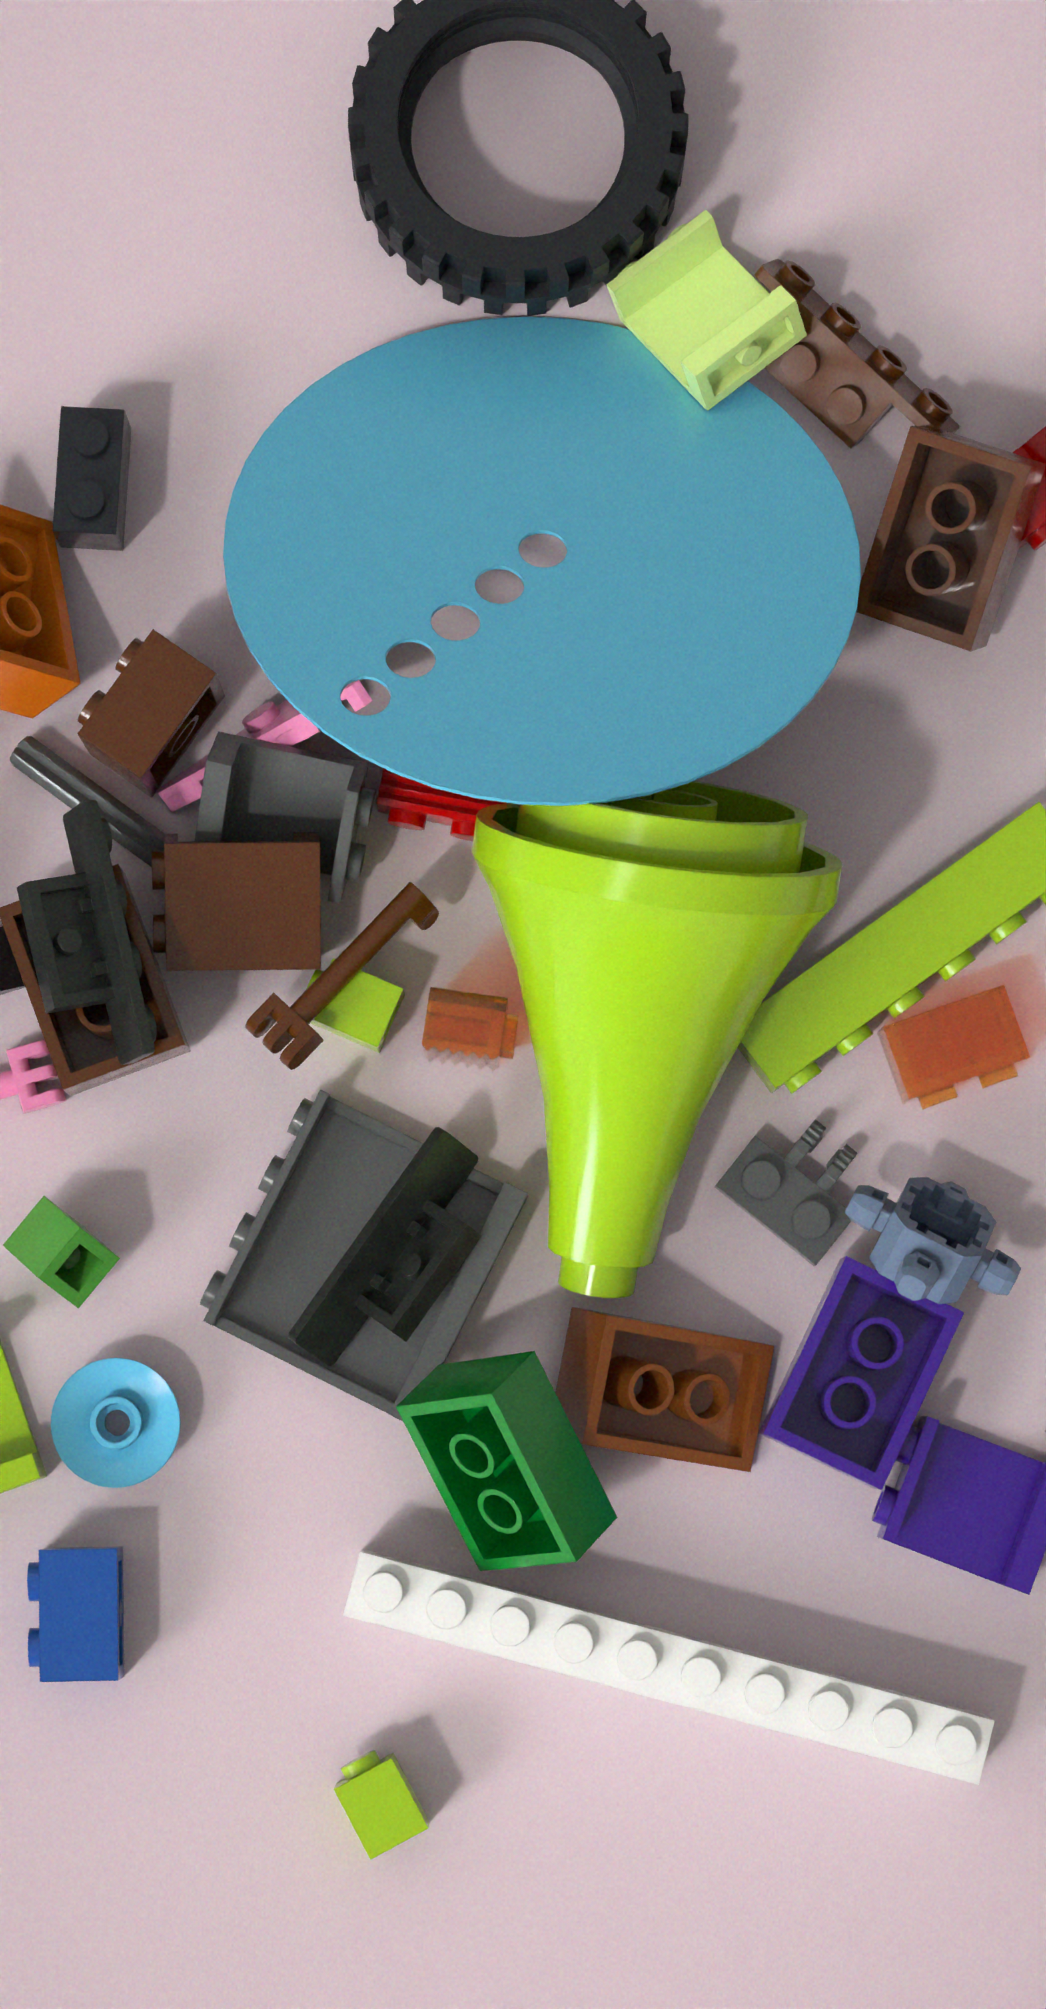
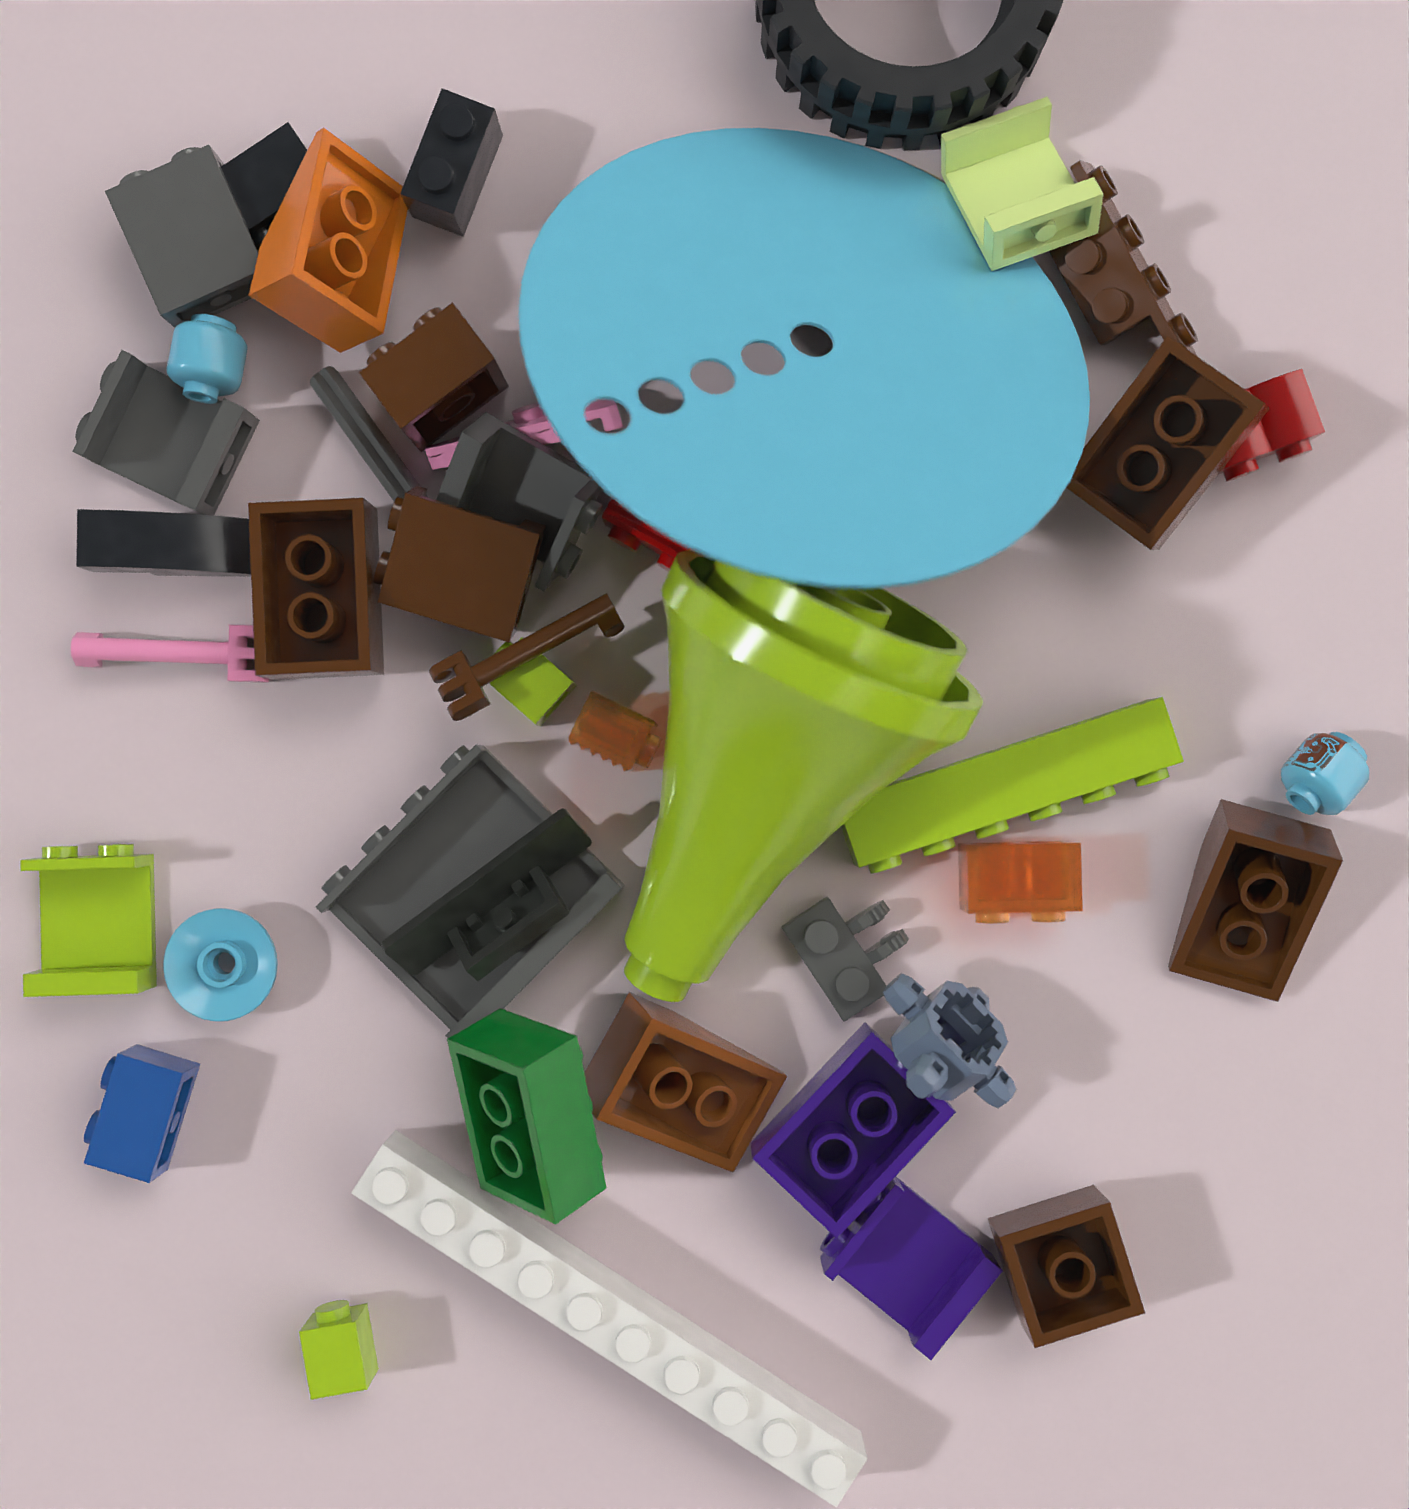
camera: 20 degrees right, 5 degrees up
(61, 1252) = (217, 809): bright green brick -> none
(83, 938) = (305, 552): pearl dark grey bracket -> none

